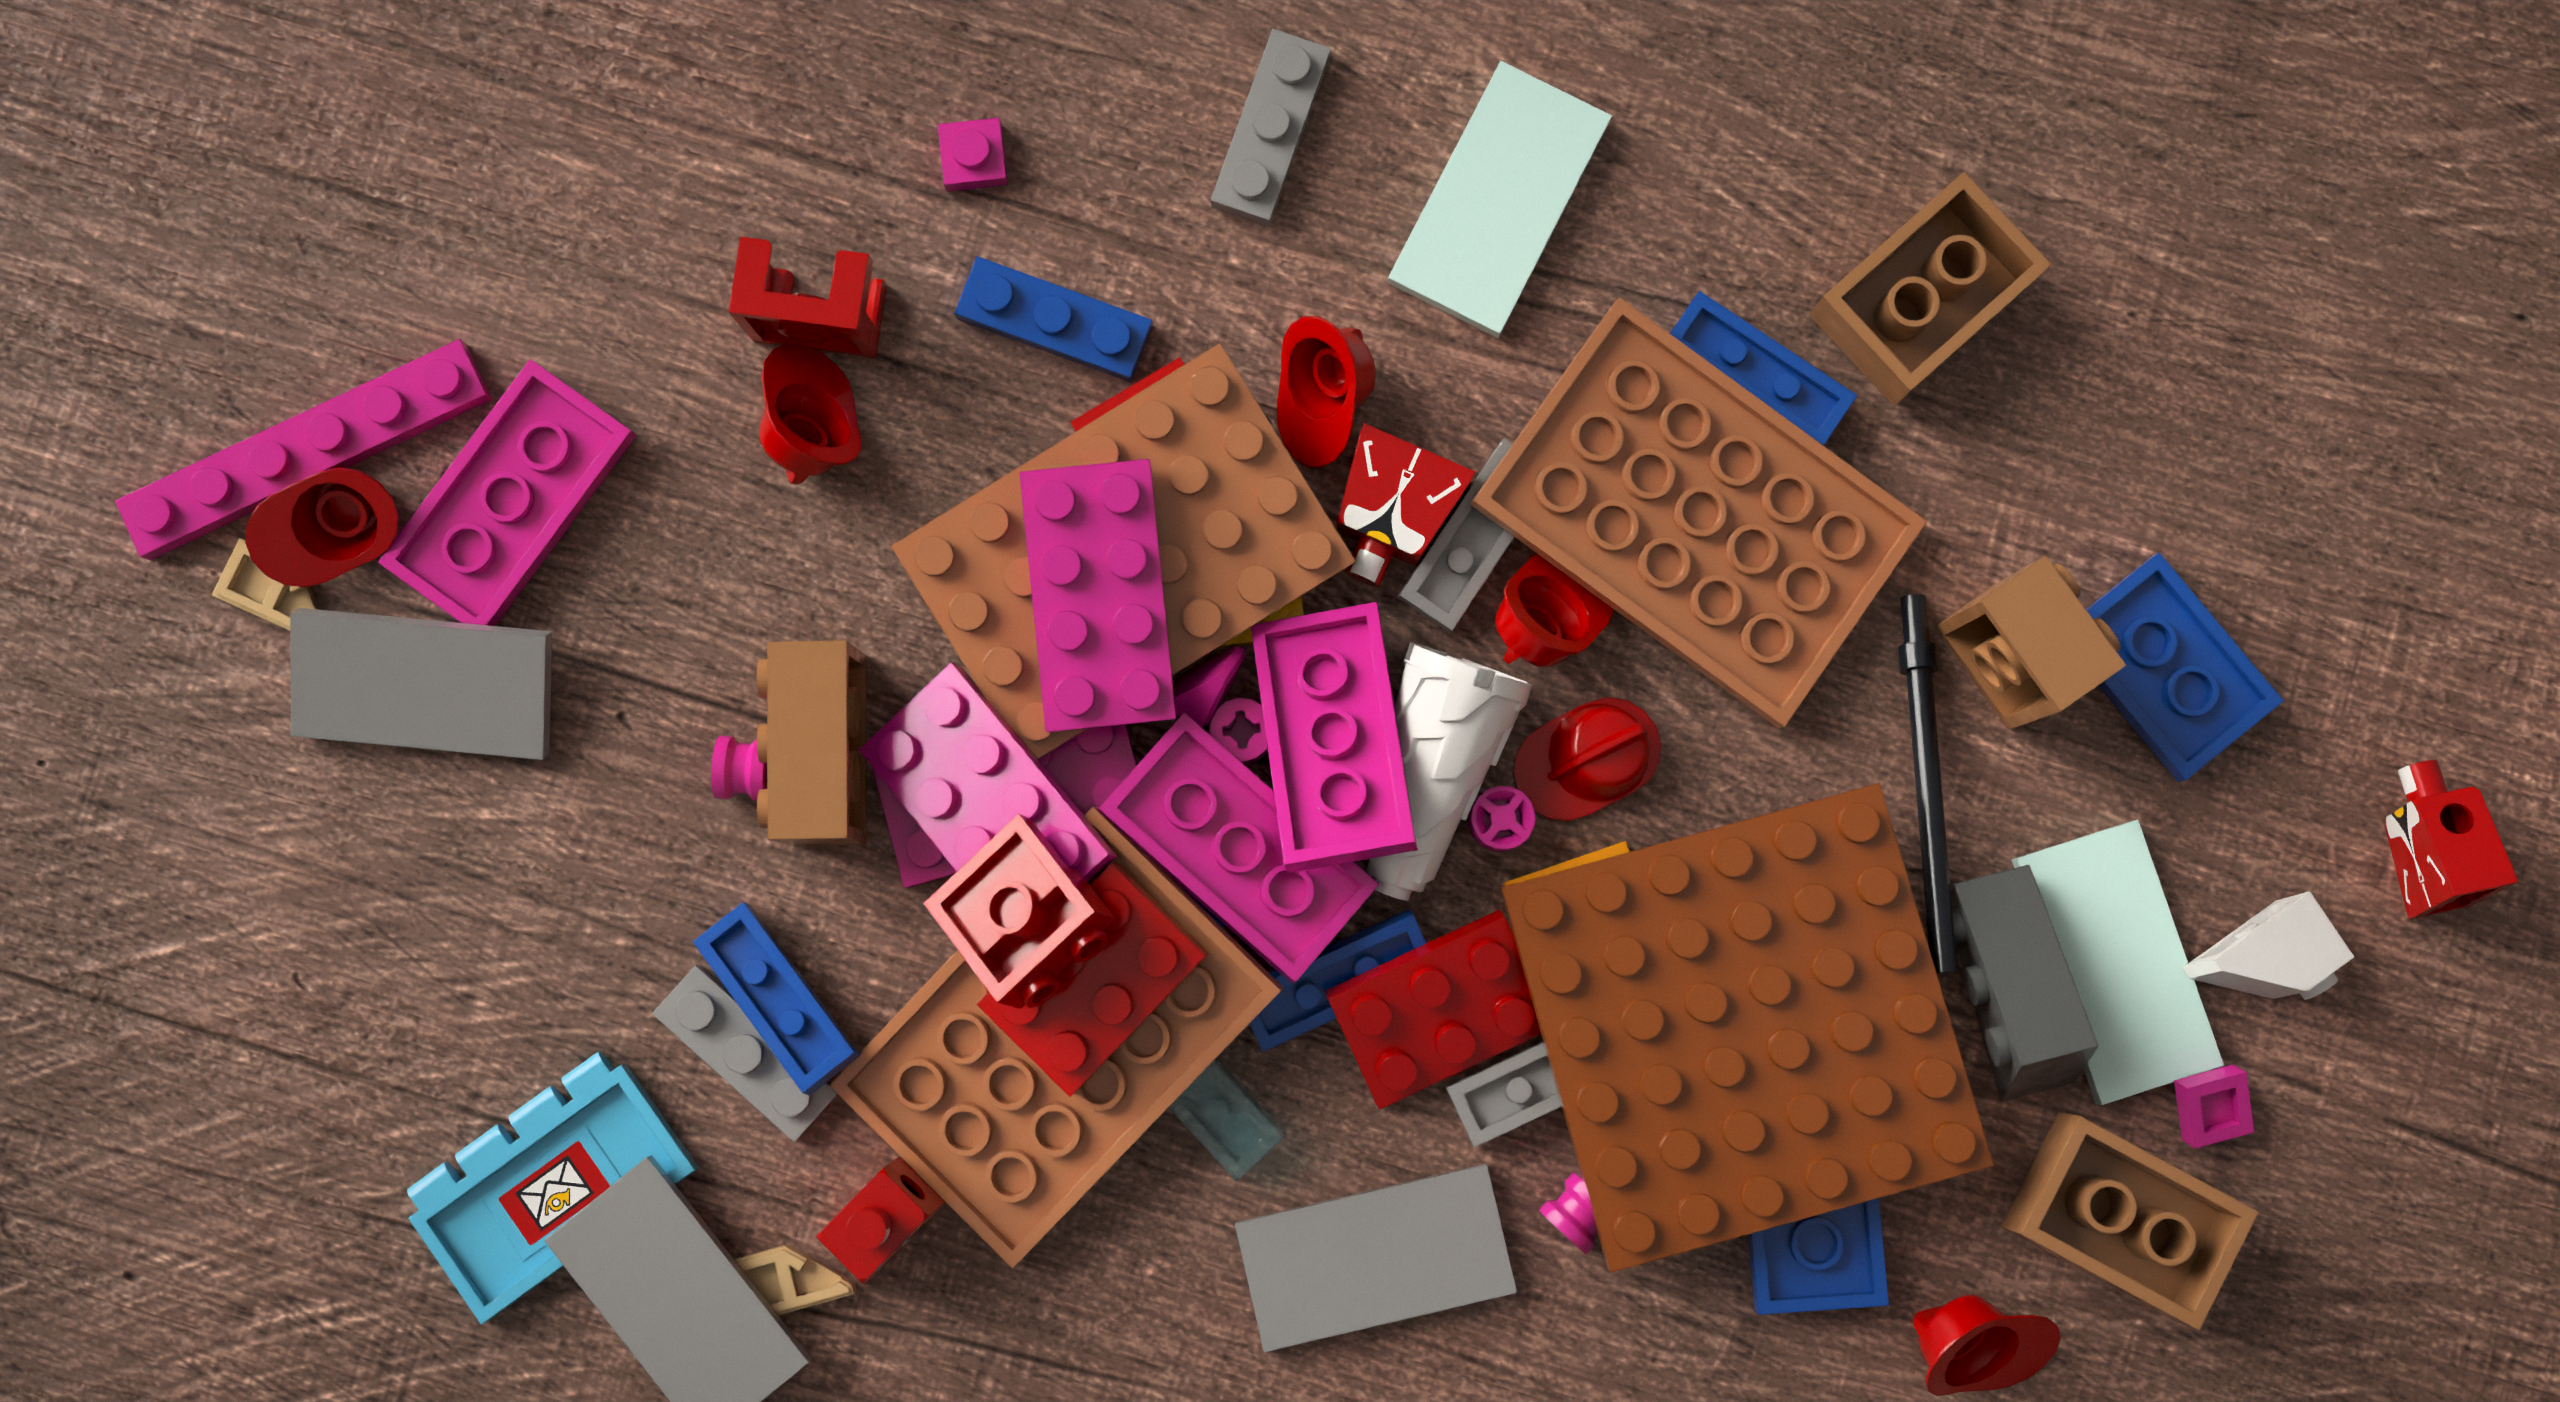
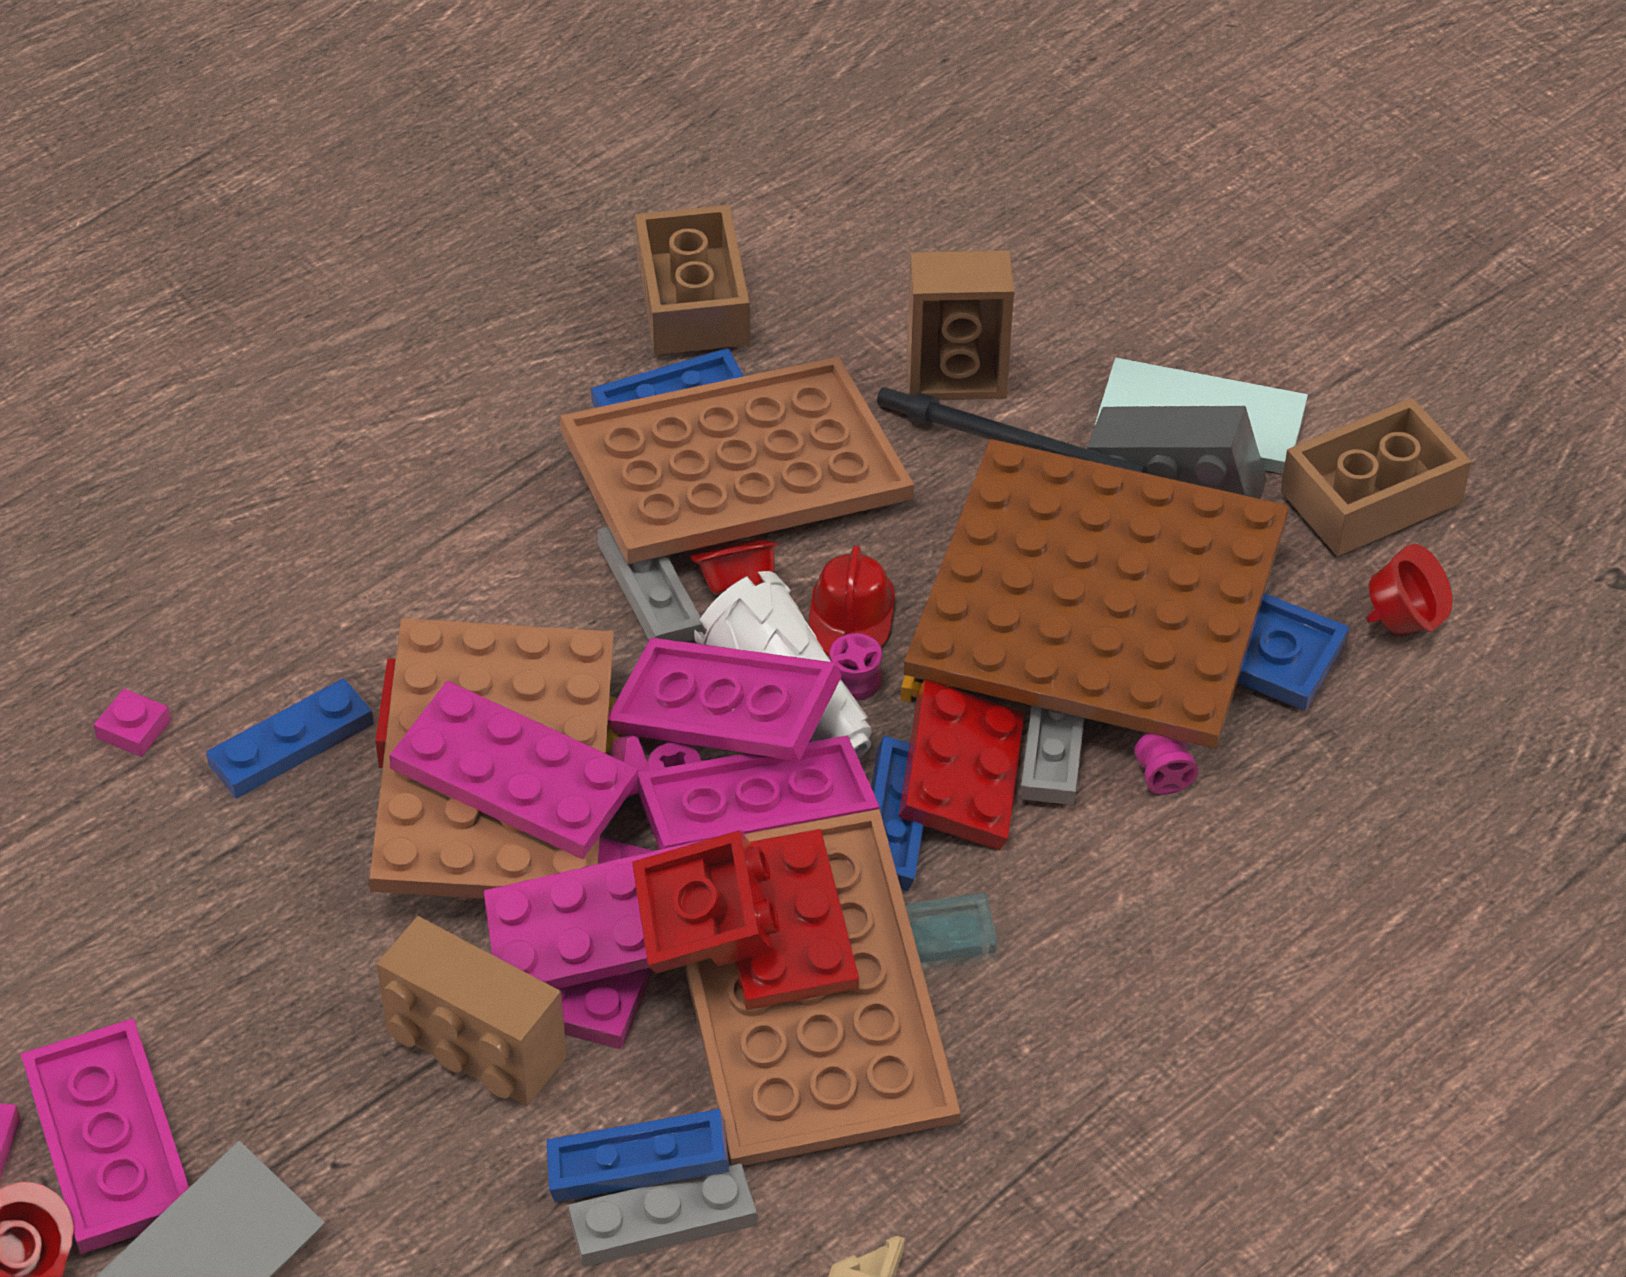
camera: 60 degrees left, 35 degrees down
(736, 769) = (446, 1087): dark pink wheel -> none
(773, 315) = (157, 853): red panel -> none
(807, 413) = (230, 913): red piece -> none
(880, 1220) = (855, 1160): red torso -> none
(1270, 127) = (275, 554): light grey plate -> none
(1320, 387) = (471, 588): red piece -> none
(1375, 1257) = (1113, 902): light grey tile -> none
(1396, 502) = (589, 596): red torso -> none
(1499, 199) = (437, 464): light aqua tile -> none
(2183, 675) = (1057, 297): blue plate -> none
(2214, 1106) = (1329, 407): dark pink plate -> none
(2277, 952) = (1252, 330): white slope -> none
(2444, 845) = (1243, 224): red torso -> none

